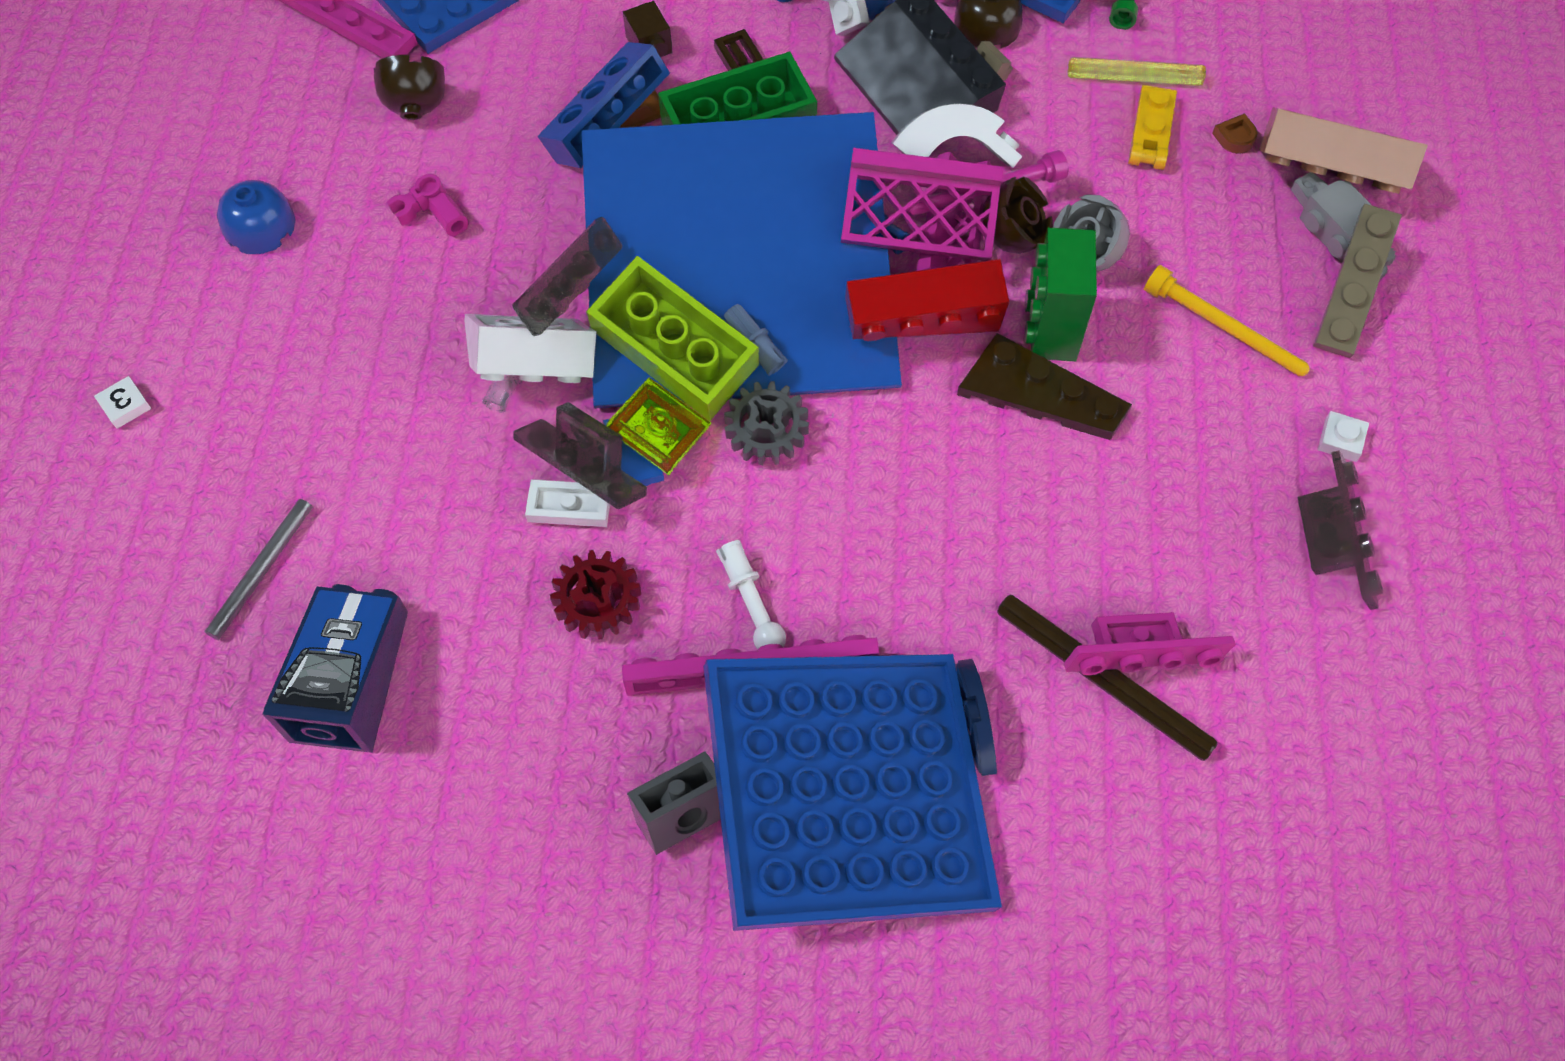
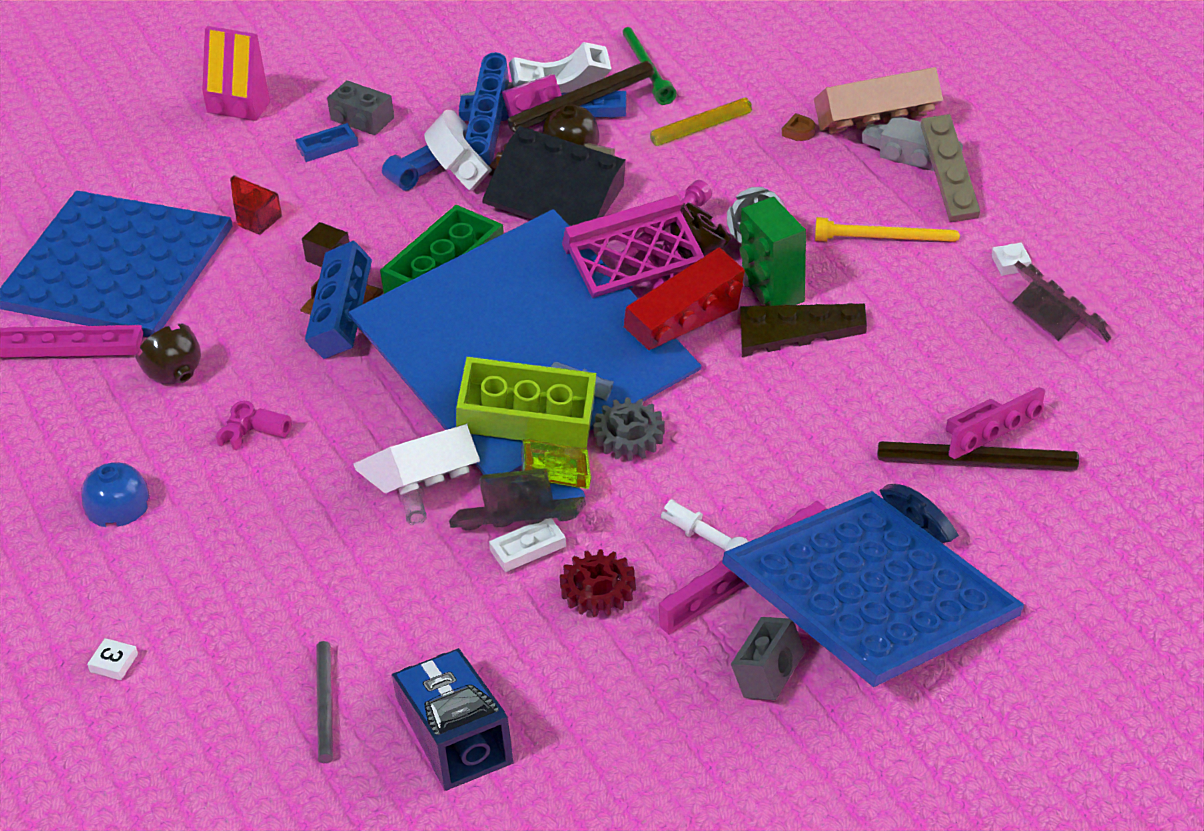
camera: 30 degrees left, 20 degrees down
(567, 277) = (420, 406): clear smoke bracket -> none
(724, 54) = (399, 236): dark brown tile -> none
(944, 122) = (615, 192): white arch -> none
(1152, 127) = (740, 148): yellow plate -> none

